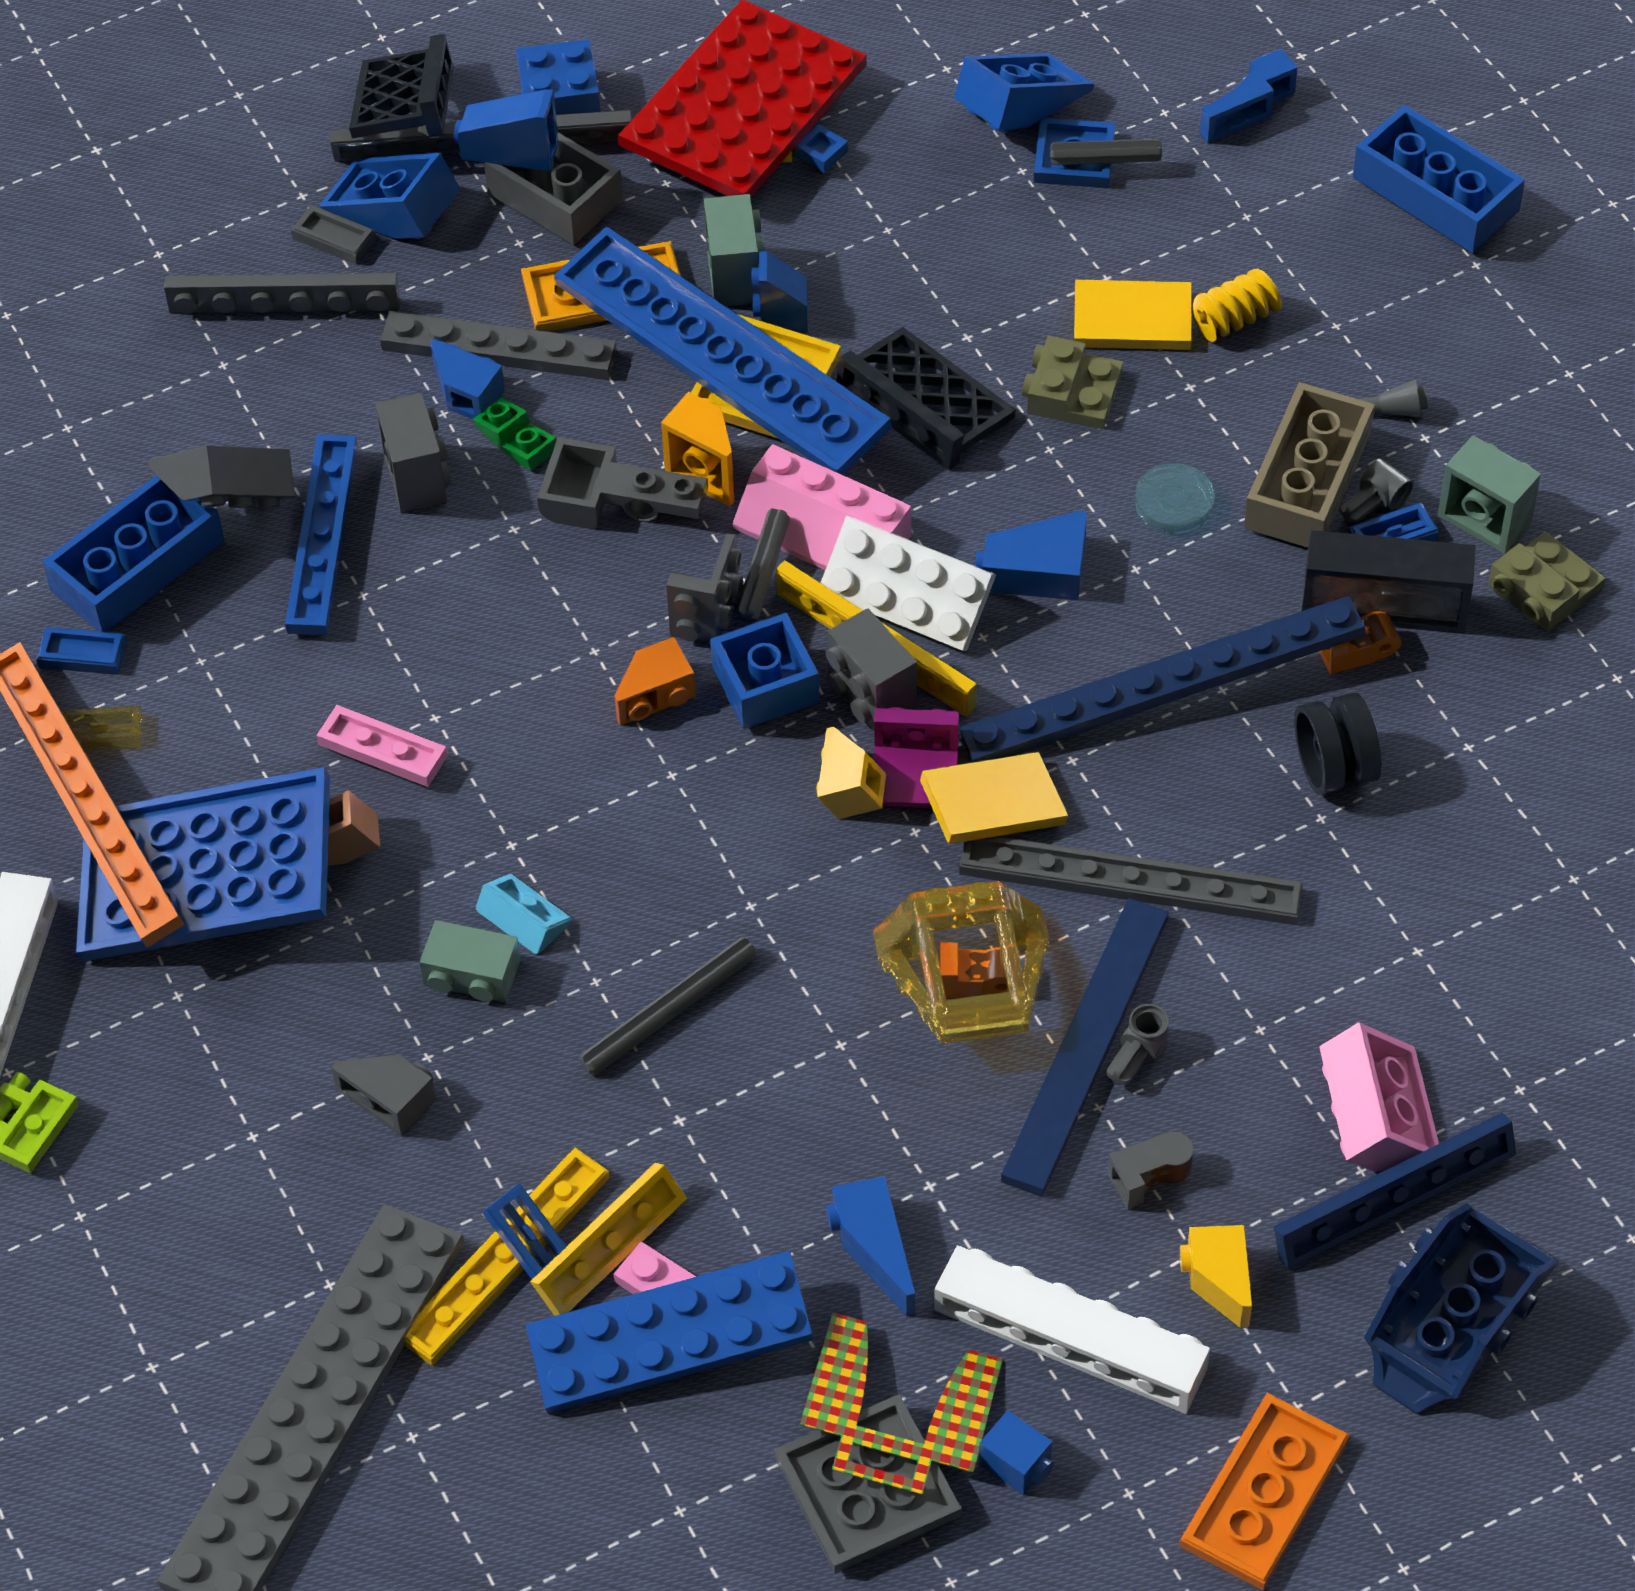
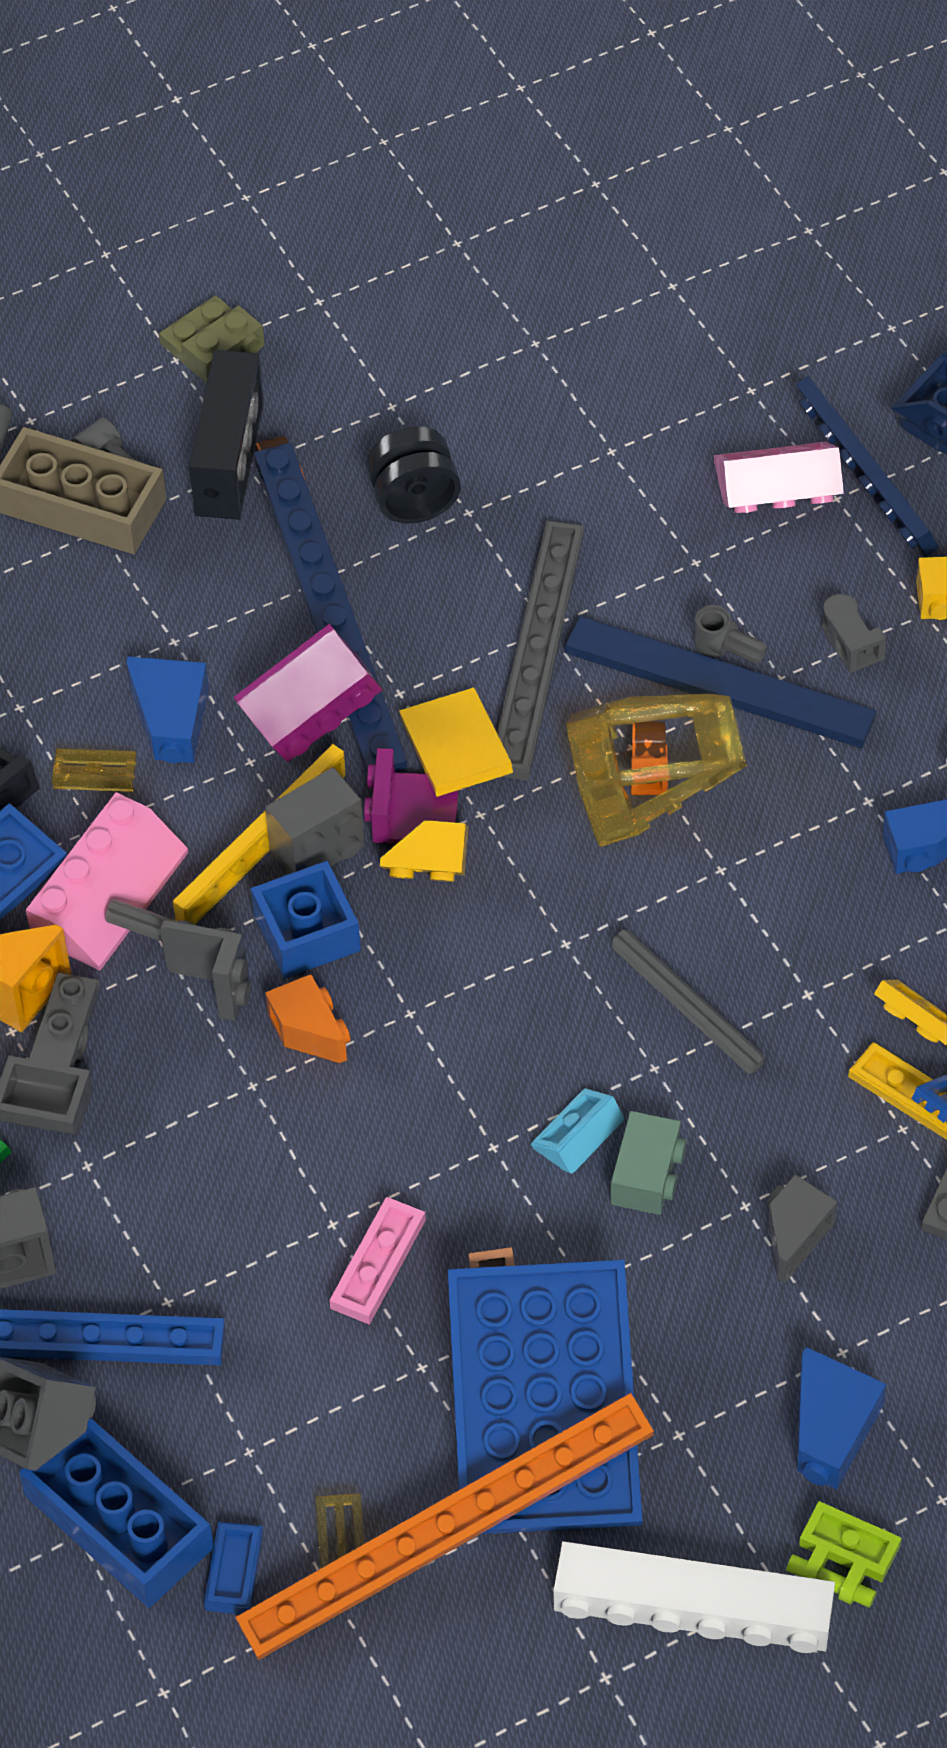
camera: 90 degrees left, 0 degrees up
(168, 1112) = (834, 1416): none -> blue slope
(908, 583) = (200, 805): white plate -> none
(968, 534) = (94, 775): none -> clear yellow tile
(1029, 654) = (308, 693): none -> slope
(1174, 498) = (94, 605): clear light blue tile -> none
(1419, 530) = (170, 460): blue tile -> none
(1489, 494) = (128, 357): sand green brick -> none

